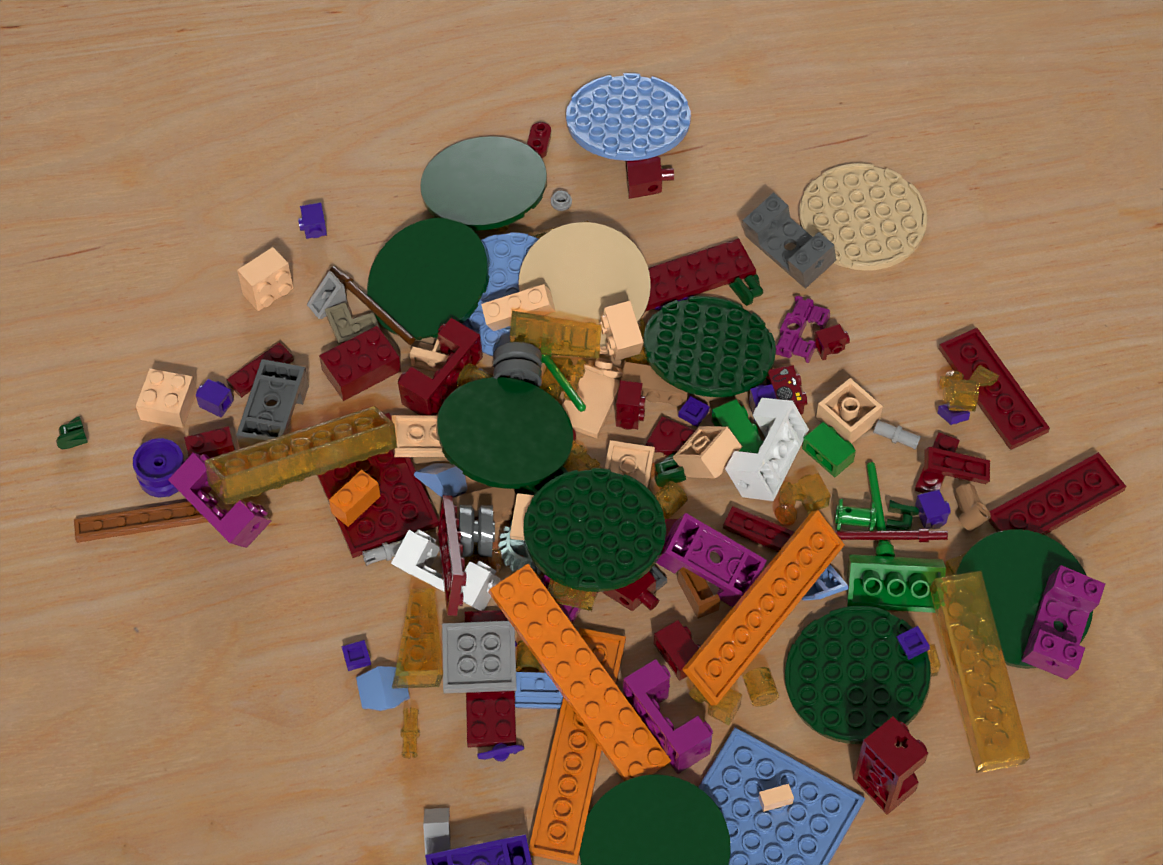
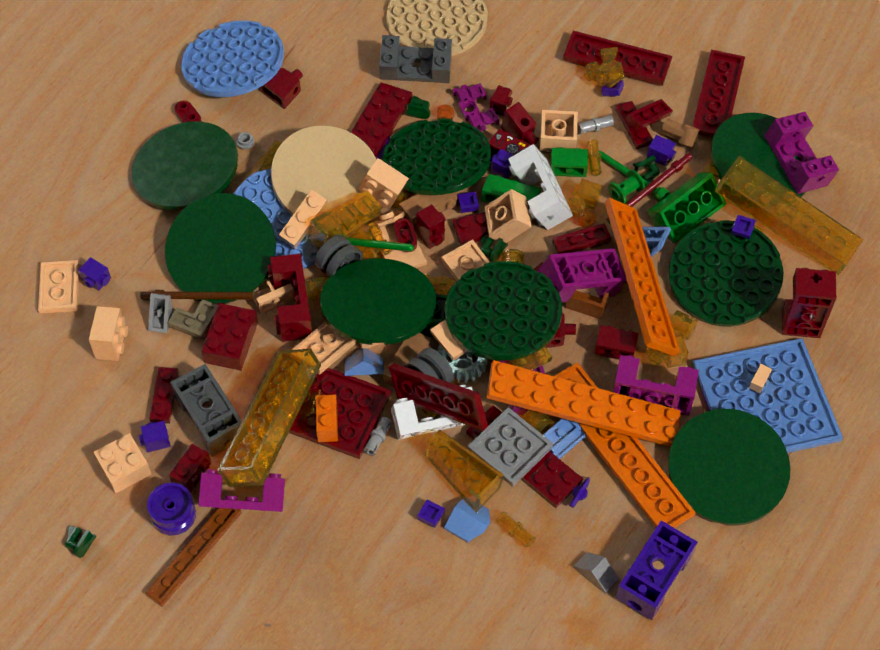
camera: 45 degrees left, 0 degrees up
(277, 209) = (58, 286): none -> light nougat tile
(599, 396) = (406, 236): none -> dark red plate
(768, 312) = (445, 111): none -> clear orange tile
(818, 376) = (519, 124): none -> dark red torso
(859, 464) = (594, 157): none -> clear yellow pin

